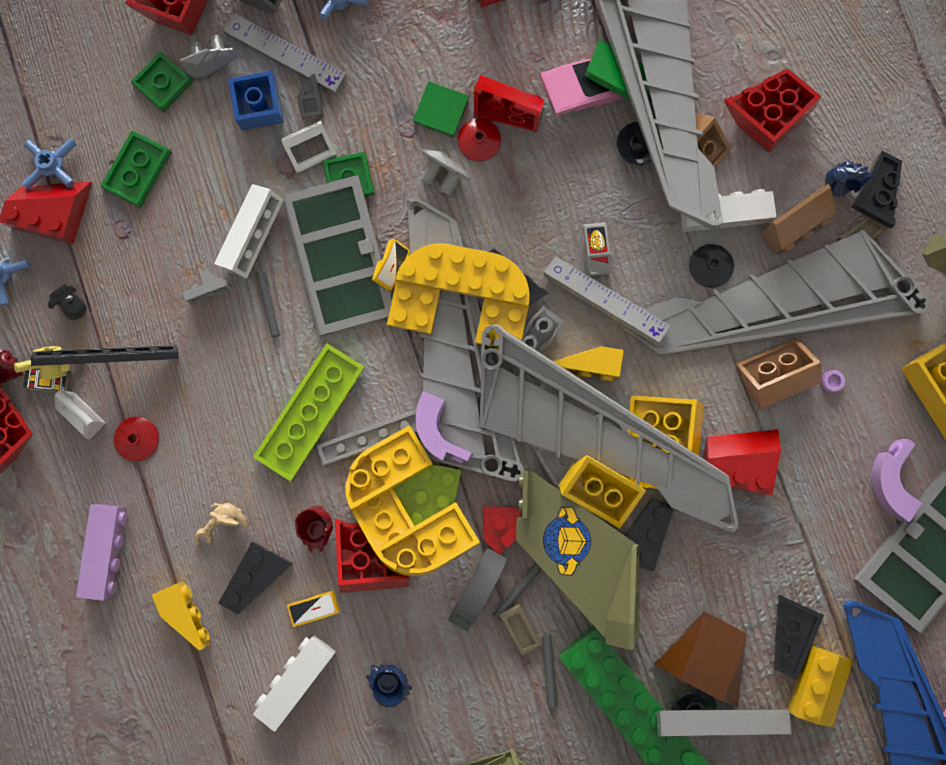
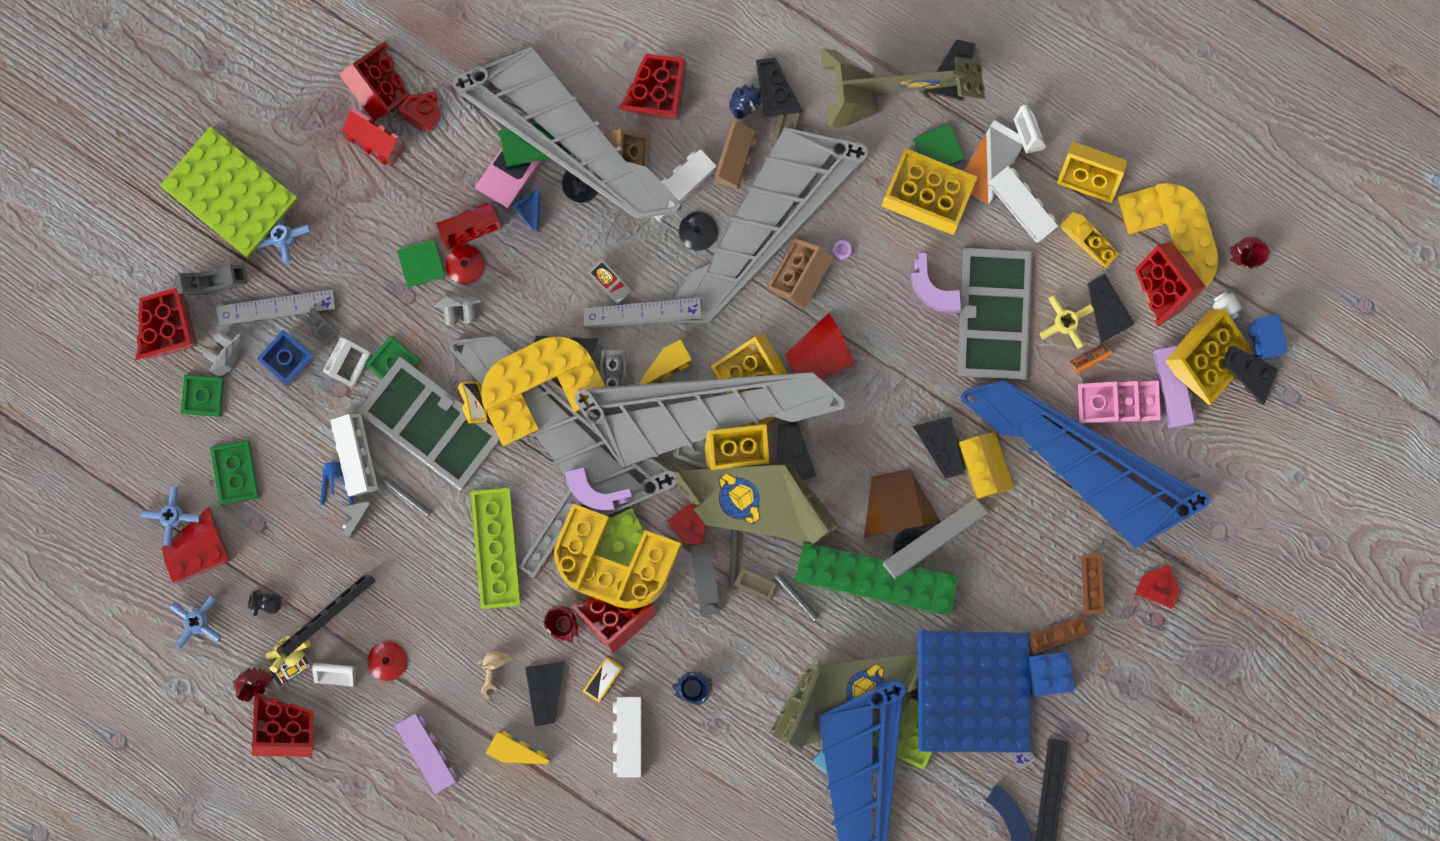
camera: 40 degrees left, 0 degrees up
(219, 233) = (332, 472): none -> blue plant
(573, 130) = (529, 209): none -> blue slope

